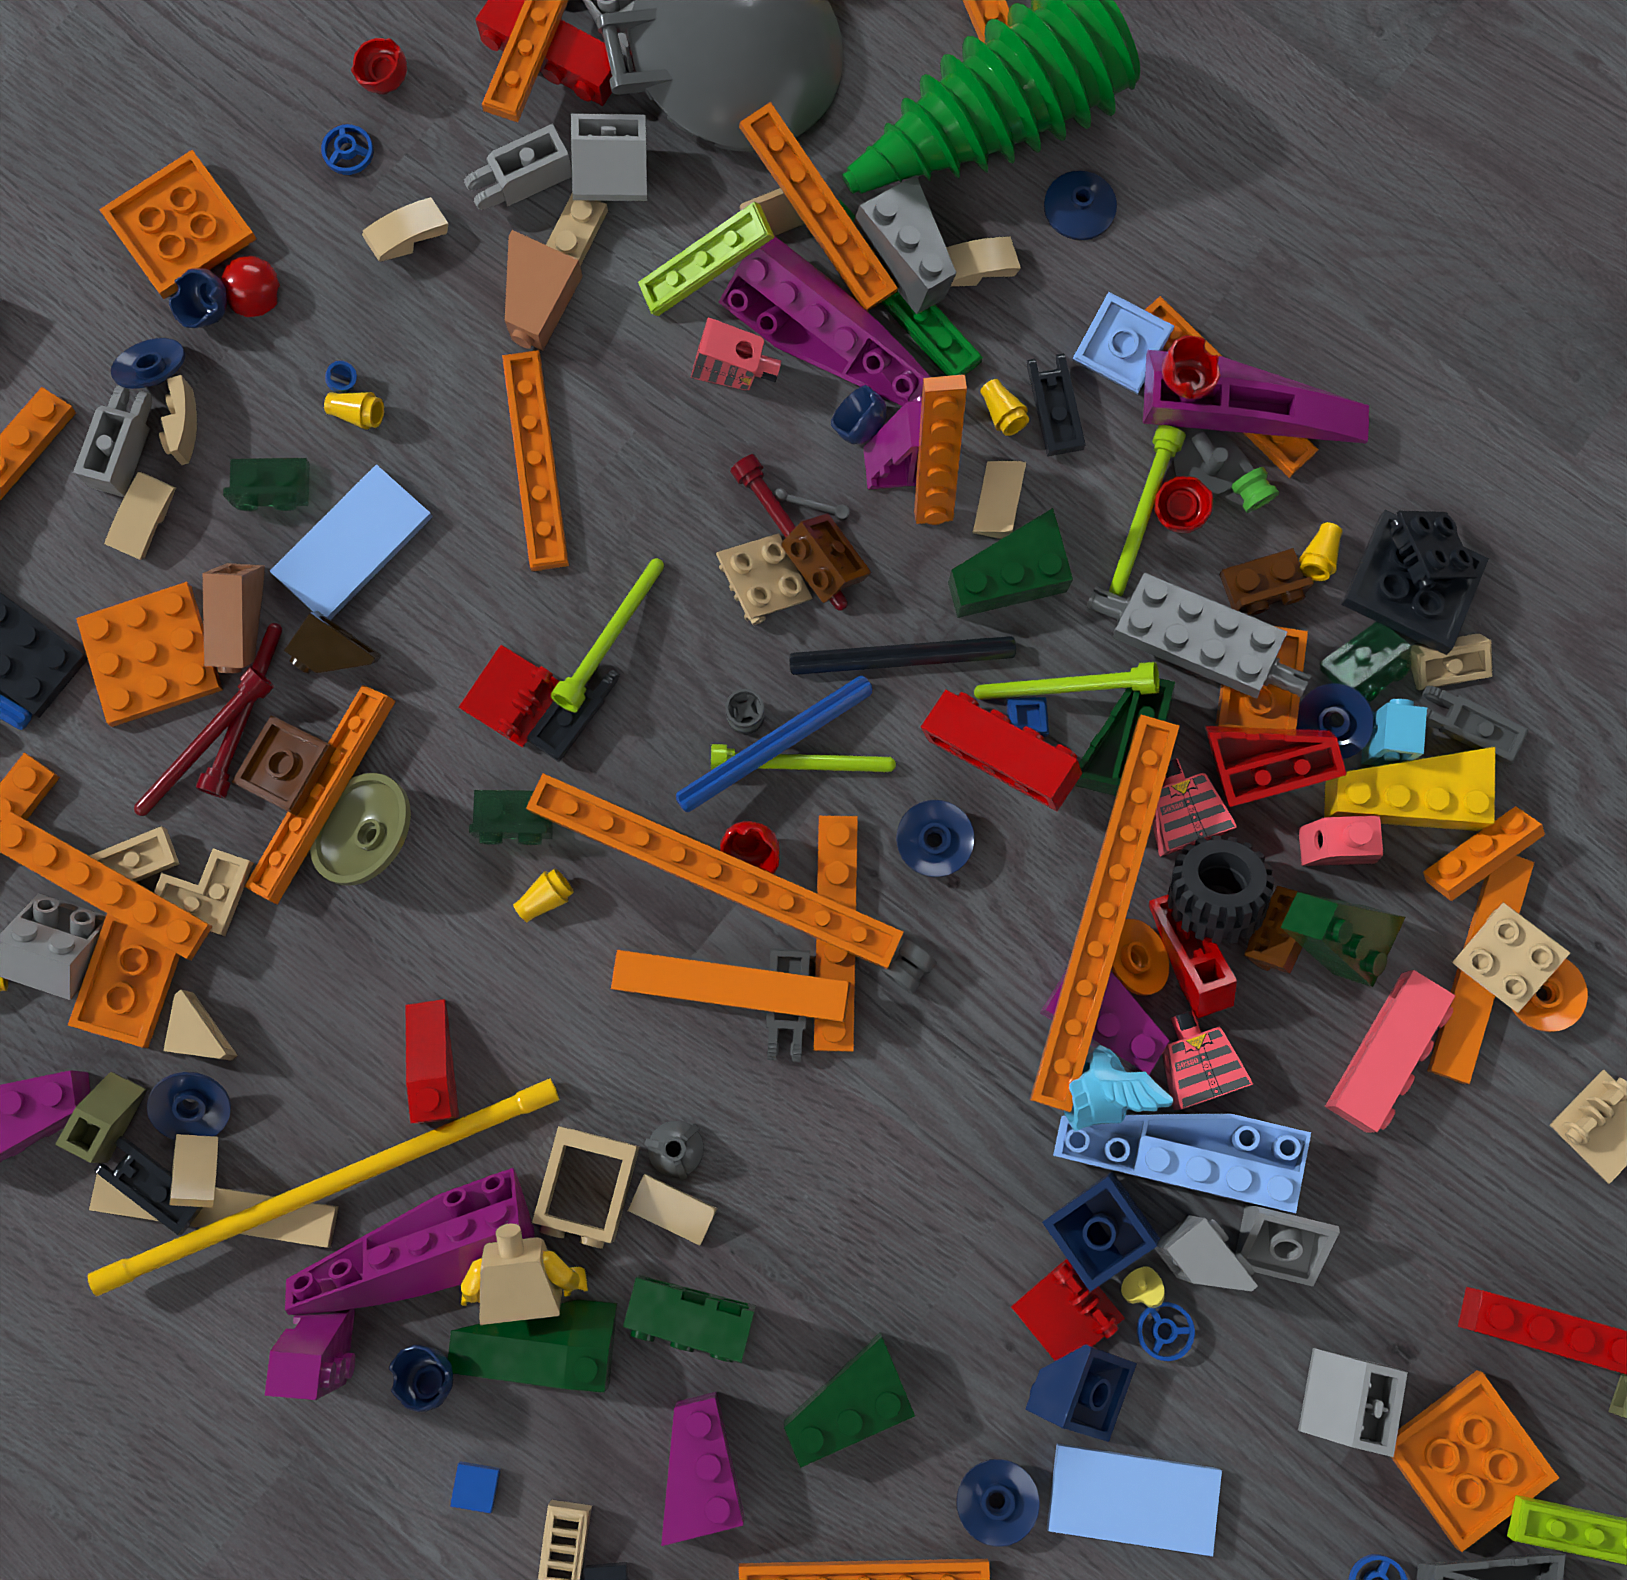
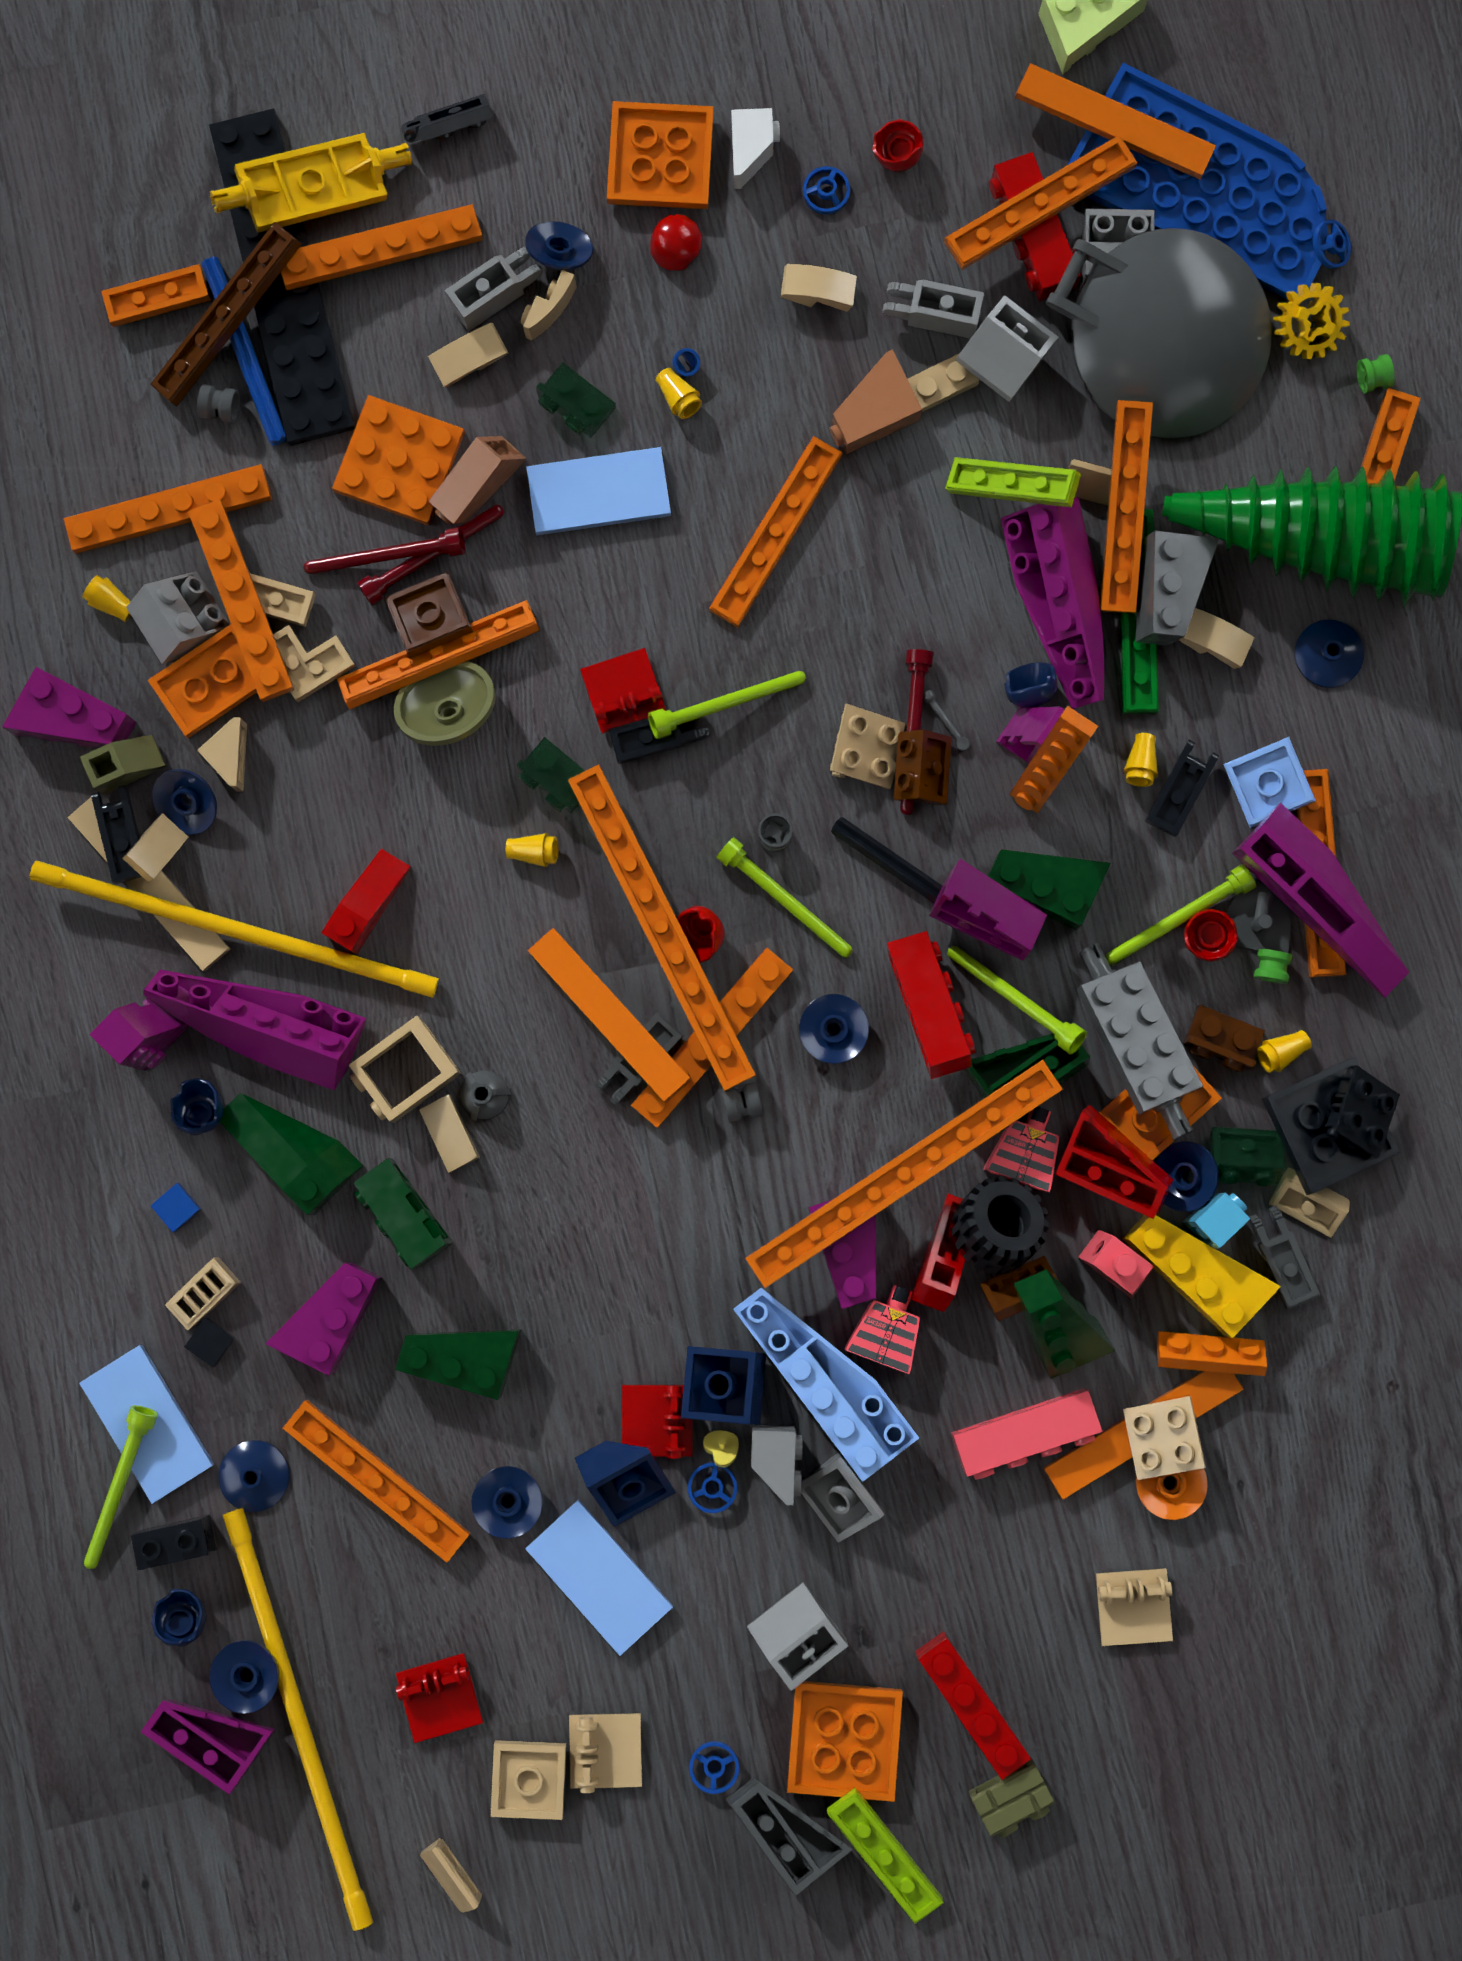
camera: 45 degrees right, 5 degrees up
(199, 299) = (630, 225): dark blue hair -> none
(249, 154) = (752, 142): none -> white slope
(327, 647) = (523, 555): dark brown slope -> none
(519, 1279) = (310, 1095): tan torso -> none
(732, 357) = (965, 559): coral torso -> none
(773, 744) = (776, 872): blue axle -> none
(983, 630) = (987, 911): none -> magenta wedge
(999, 498) = (1083, 824): tan slope -> none
(1029, 713) = (972, 996): blue tile -> none
(1108, 1091) = (803, 1296): medium azure helmet -> none
(1140, 959) = (913, 1232): orange dish -> none
(1190, 368) = (1288, 843): red hair -> none

